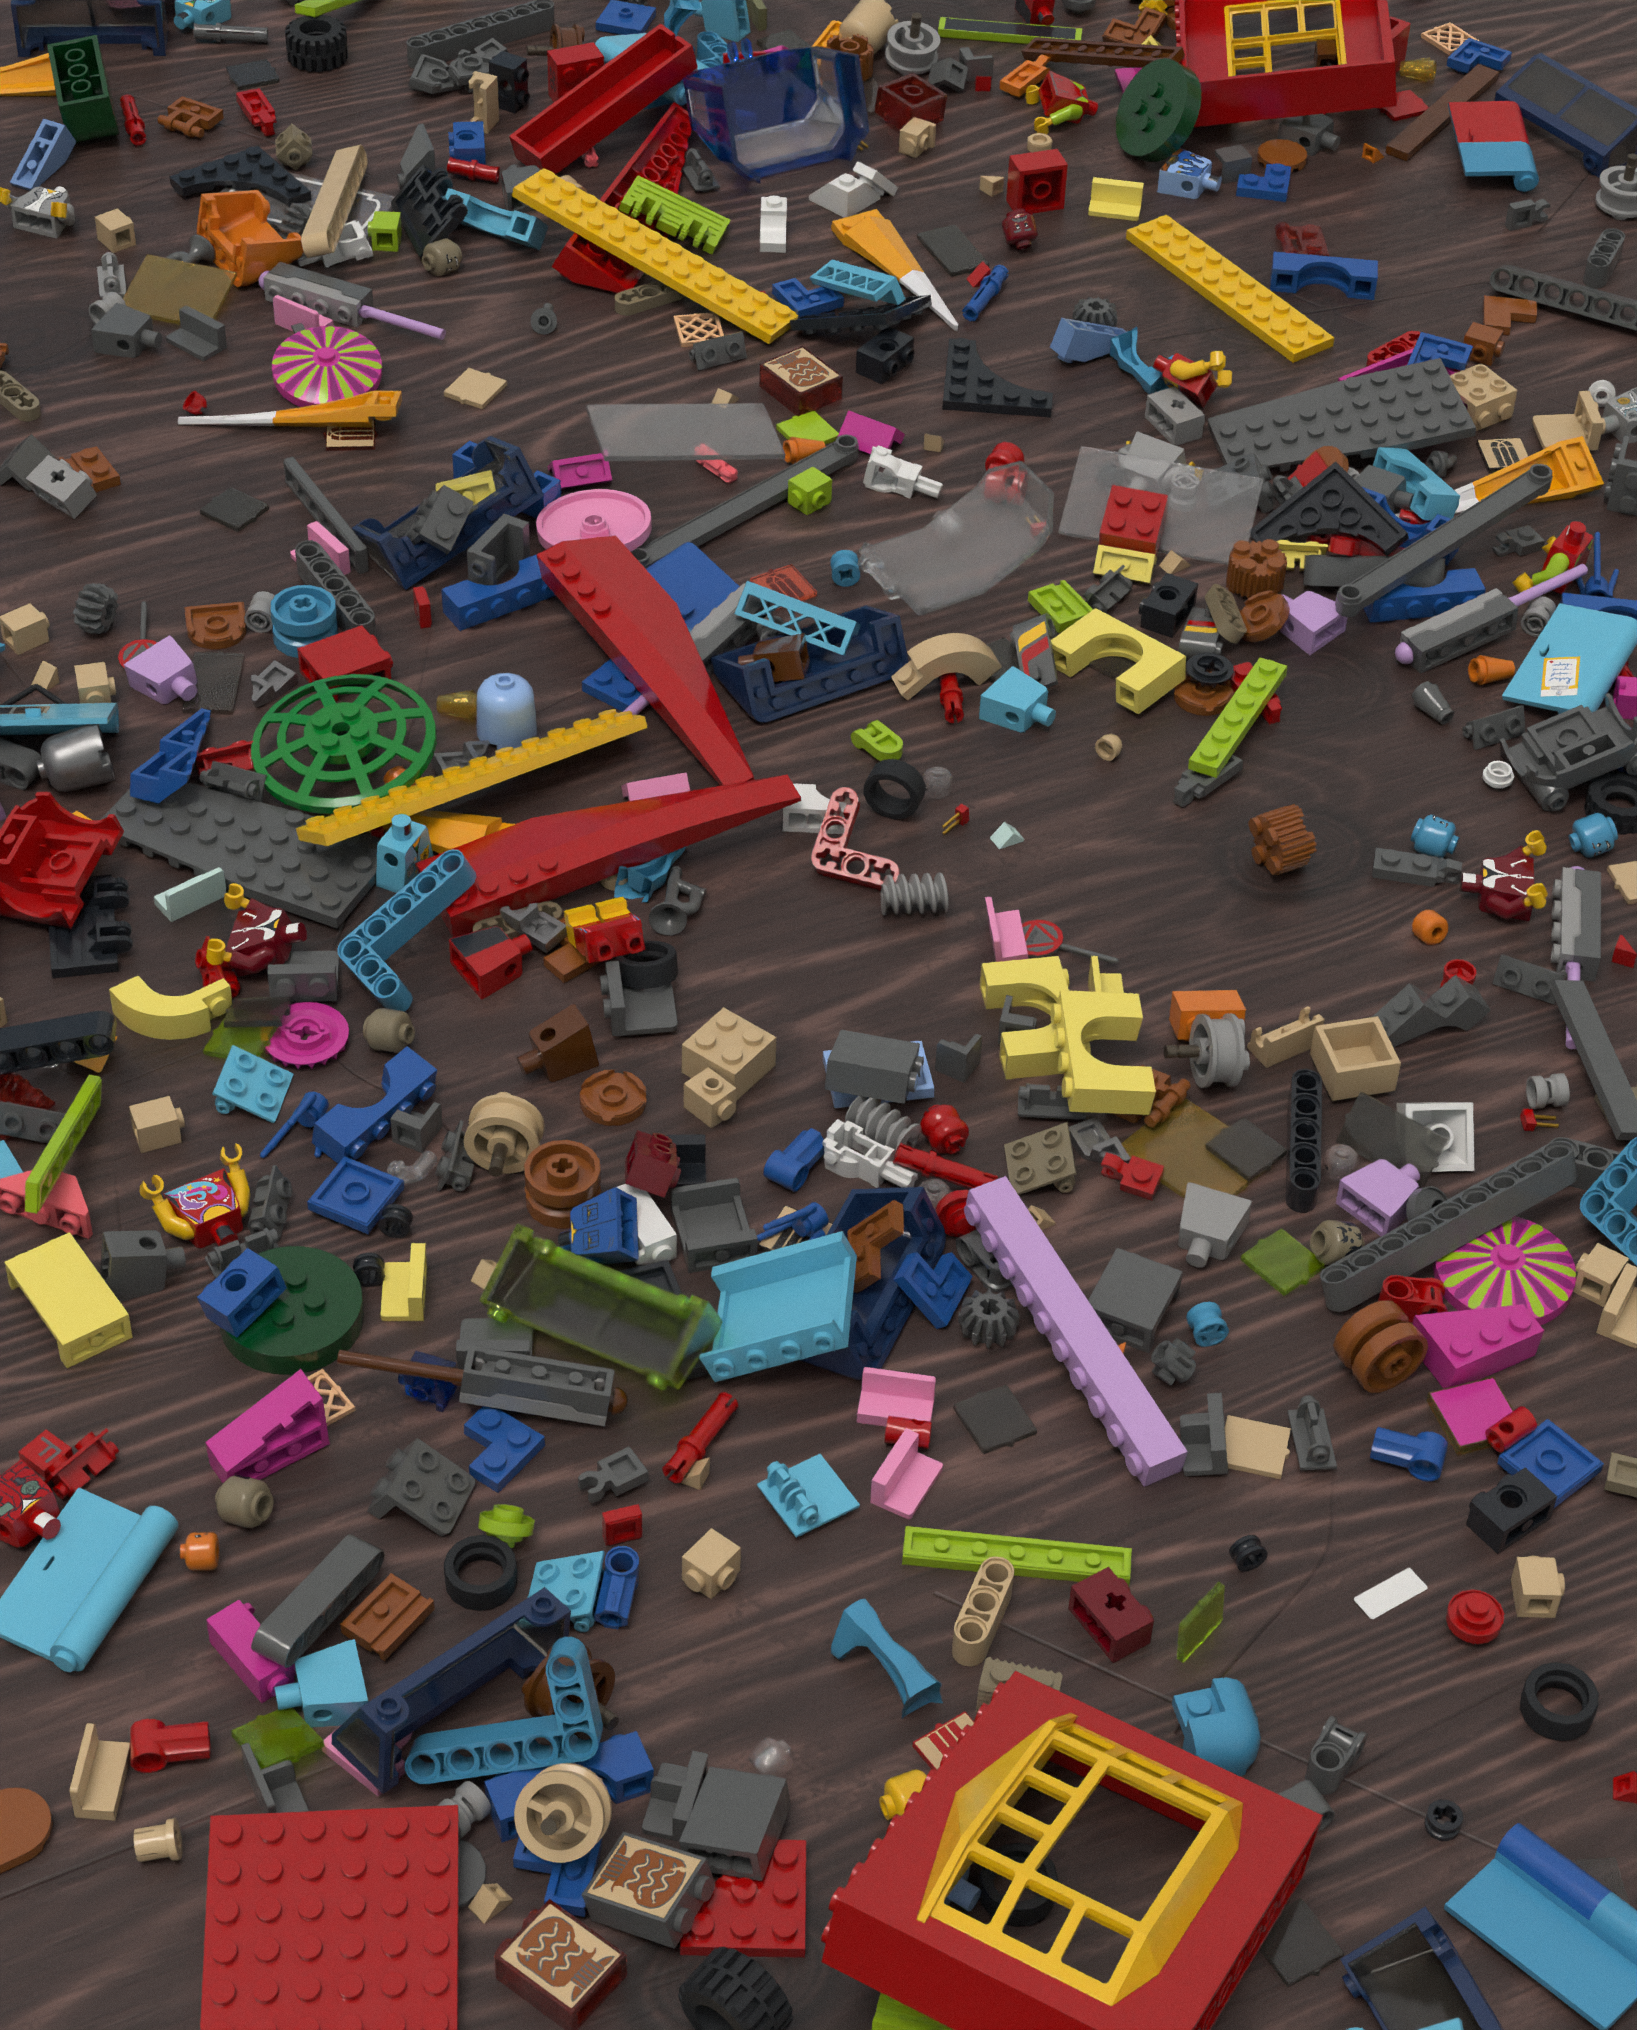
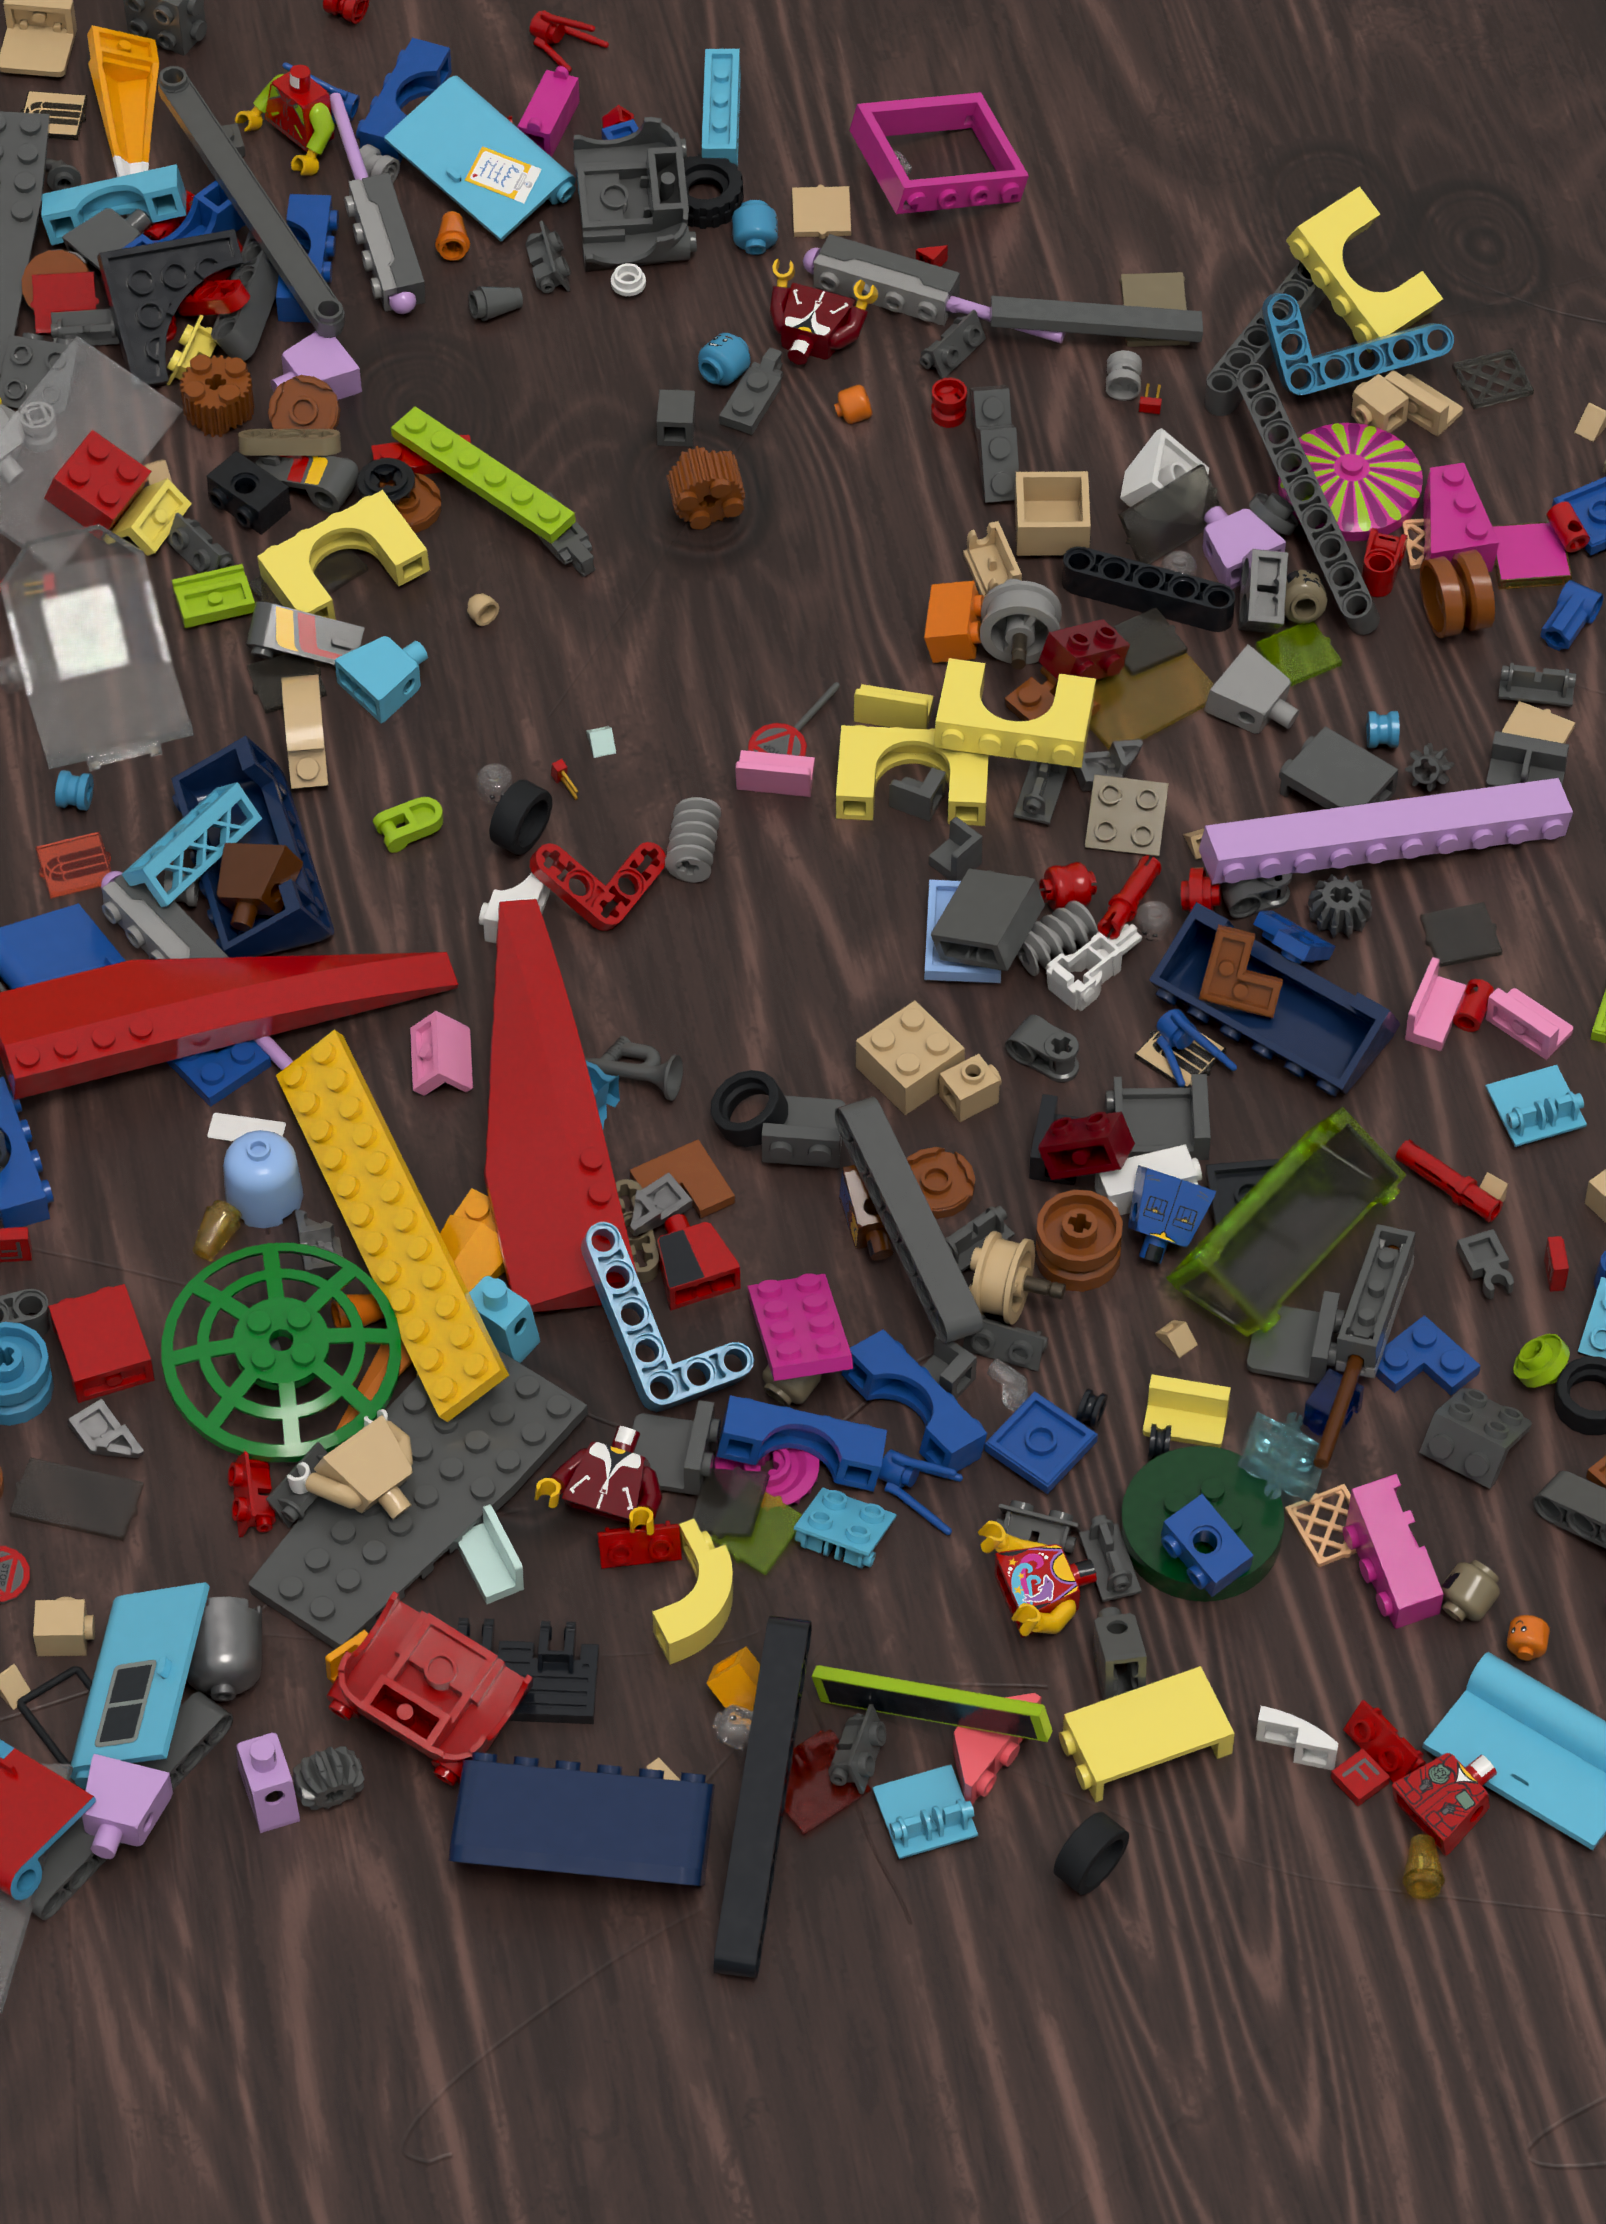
camera: 75 degrees left, 10 degrees up
(74, 1402) = (1311, 1744): none -> white slope
(156, 1124) = (888, 1625): tan brick -> none
(163, 672) = (61, 1541): lavender torso -> none
(174, 761) = (276, 1545): blue wedge -> none
(240, 796) = (363, 1469): none -> tan torso
(316, 1006) = (847, 1448): none -> blue arch
(355, 1331) = (1281, 1456): none -> clear light blue plate
(426, 1018) = (799, 1327): none -> dark pink plate
(528, 1047) = (908, 1220): none -> dark grey beam
(558, 1123) = (974, 1233): none -> dark grey hinge
(564, 710) = (231, 1126): none -> white sticker
(607, 935) = (707, 1129): red hips -> none
(766, 1135) = (1041, 1045): none -> dark grey piece
(782, 1306) = (1320, 1054): medium azure panel -> none
(792, 1165) = (1093, 1033): blue piece -> none
(951, 697) = (346, 736): red pin -> none
(1137, 1177) = (1162, 741): red plate -> none
(1194, 1092) = (1085, 651): none -> dark red brick
(1324, 1200) = (1263, 591): none -> brick
(1359, 821) = (676, 418): none -> dark grey brick

